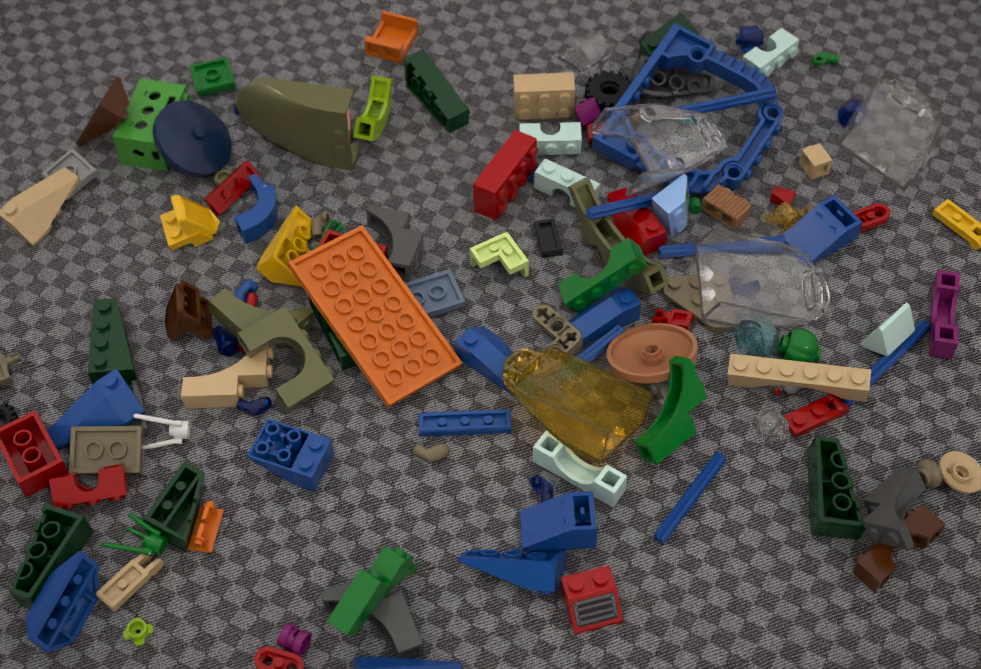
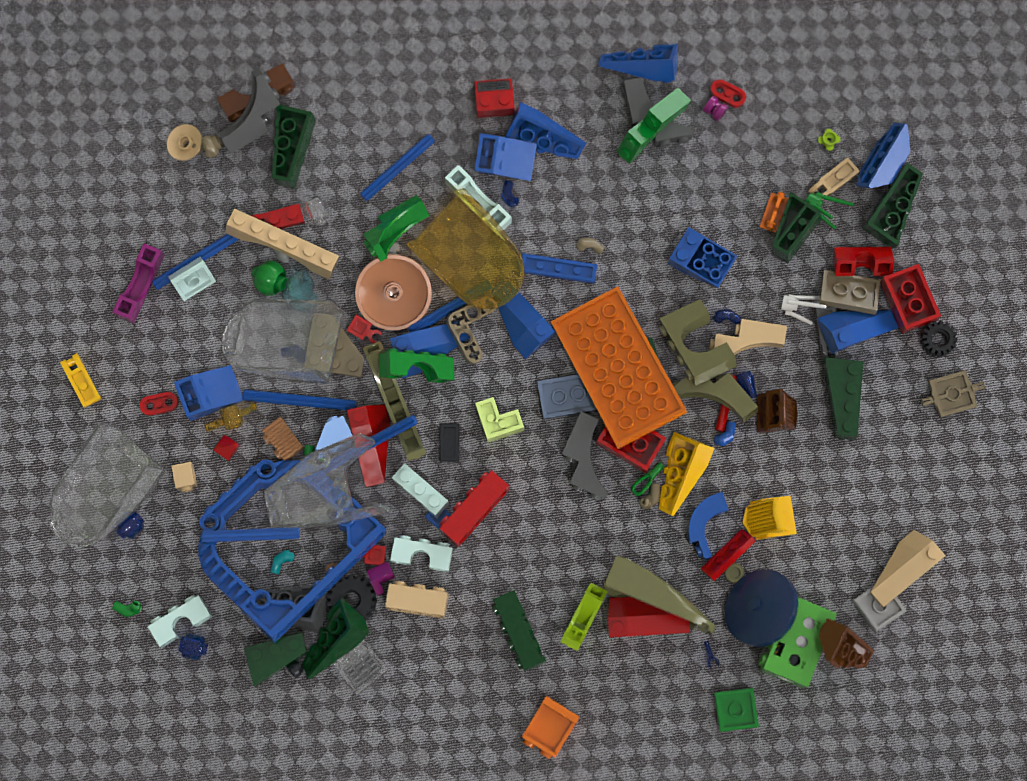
camera: 170 degrees left, 25 degrees up
(613, 54) = (339, 636): none -> dark green wedge

